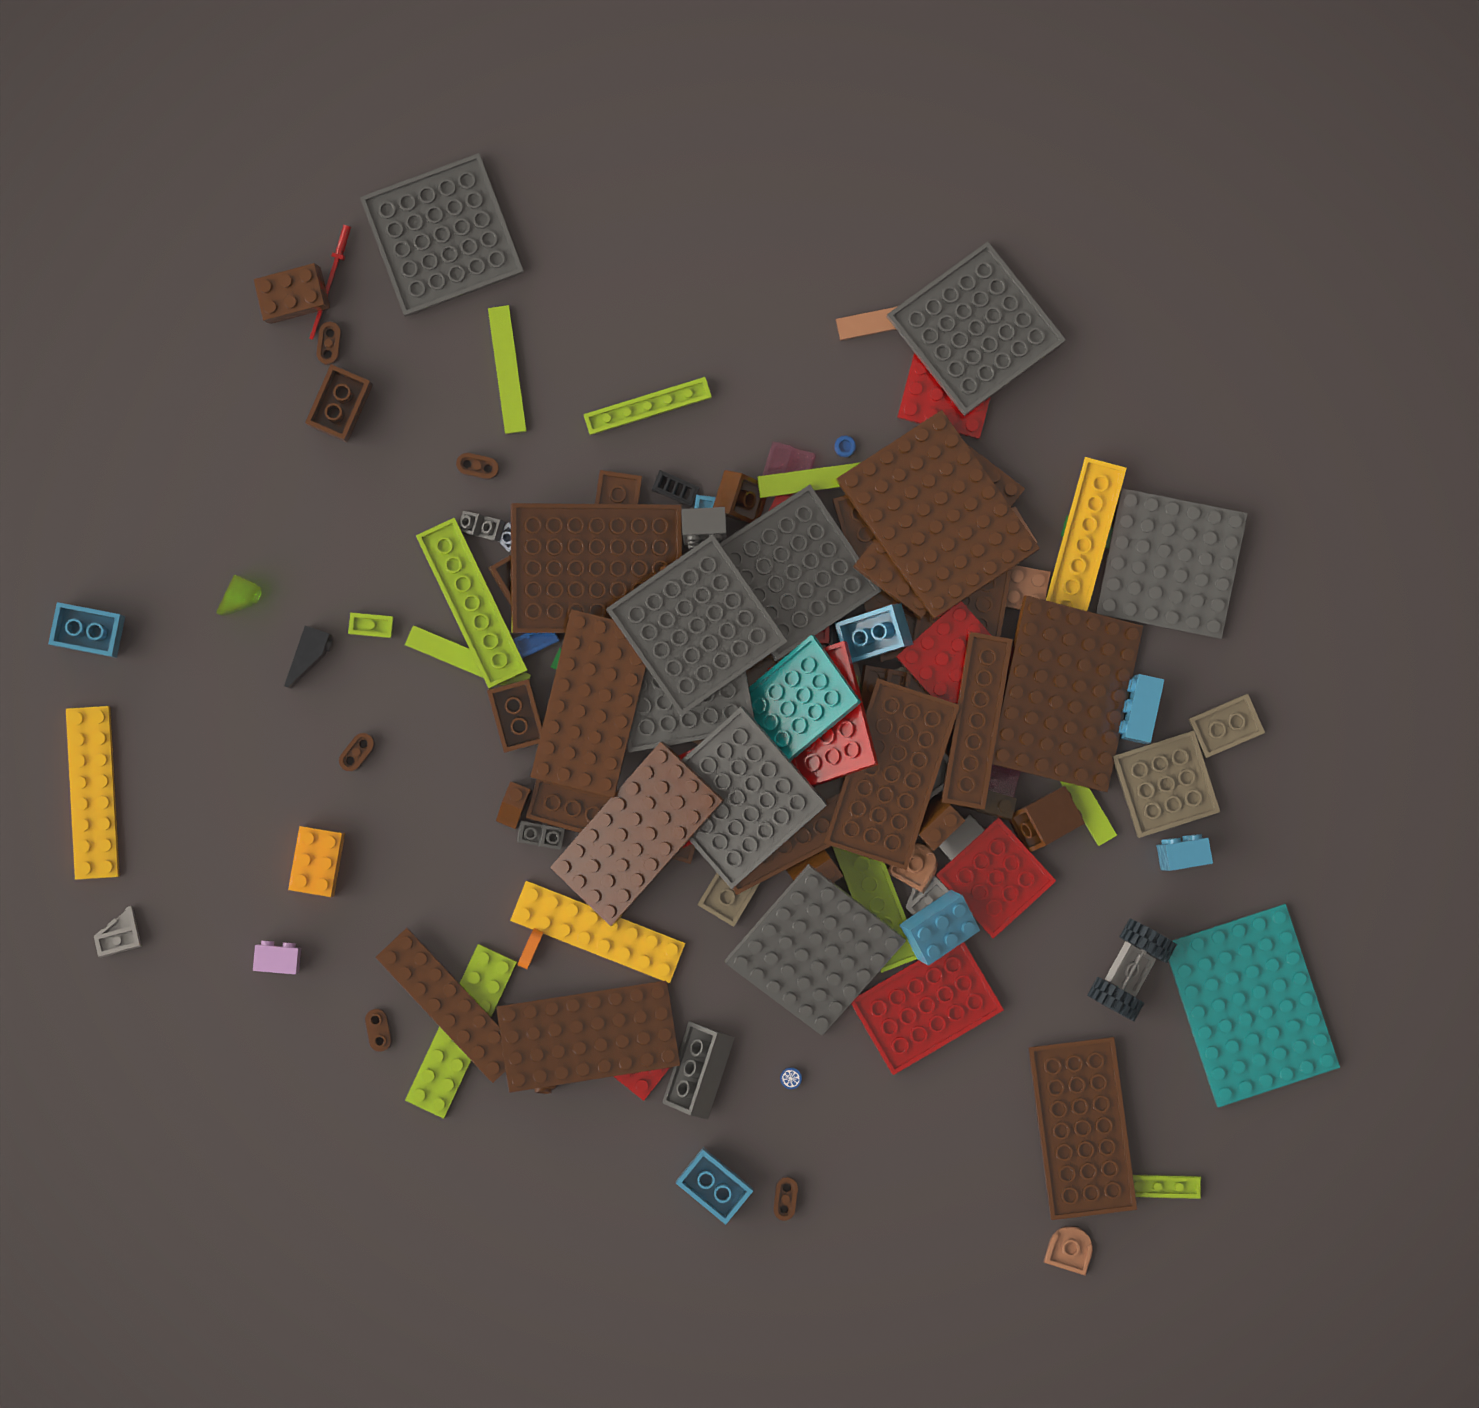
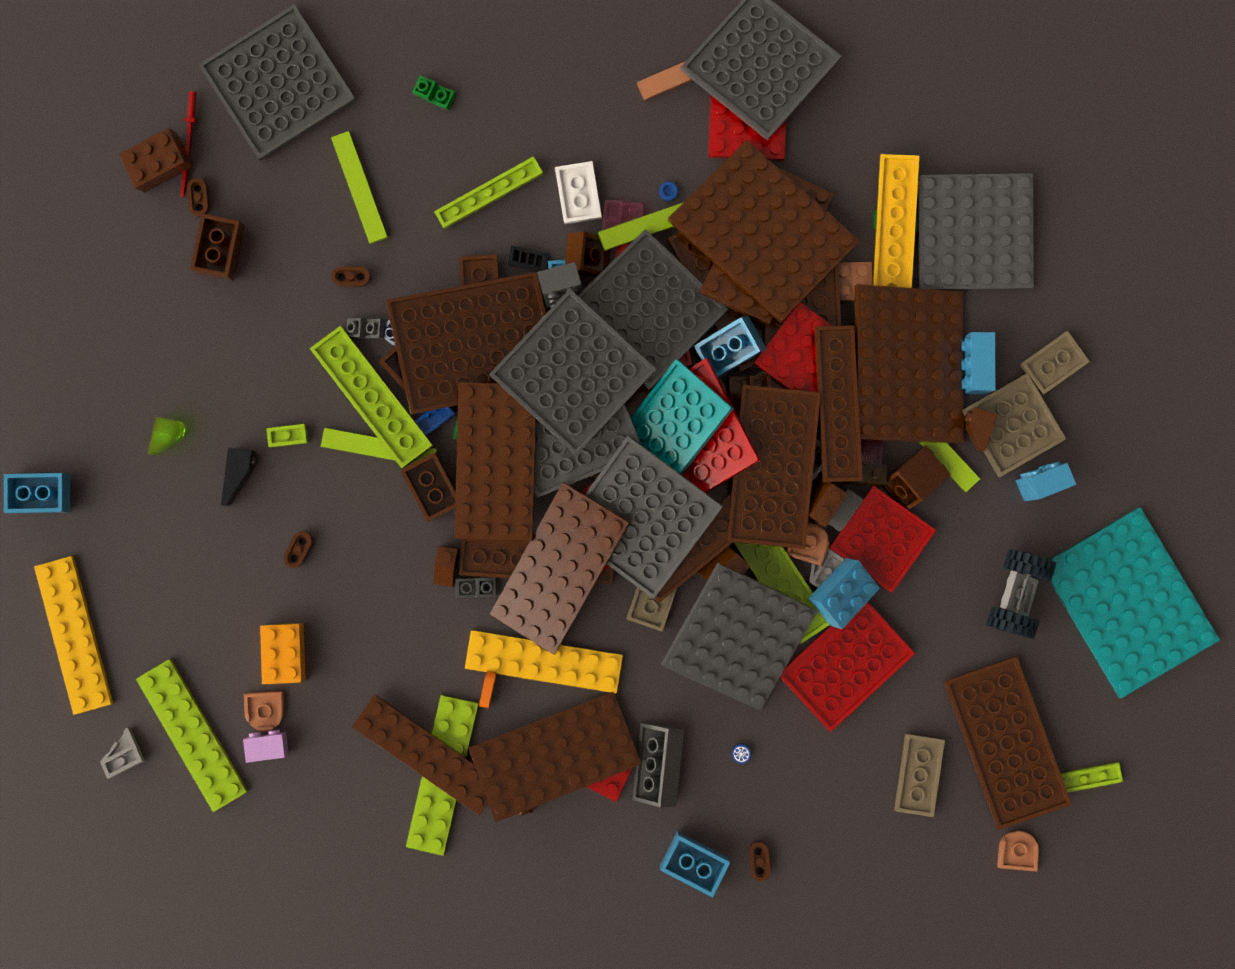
camera: 10 degrees left, 0 degrees up
(198, 929) = (192, 735): none -> lime plate
(282, 918) = (264, 709): none -> nougat tile
(378, 1030) = (368, 790): reddish brown plate -> none
(611, 283) = (434, 93): none -> green slope
(745, 427) = (578, 192): none -> white plate
(979, 1143) = (919, 775): none -> dark tan plate
(1127, 778) = (979, 427): none -> reddish brown slope

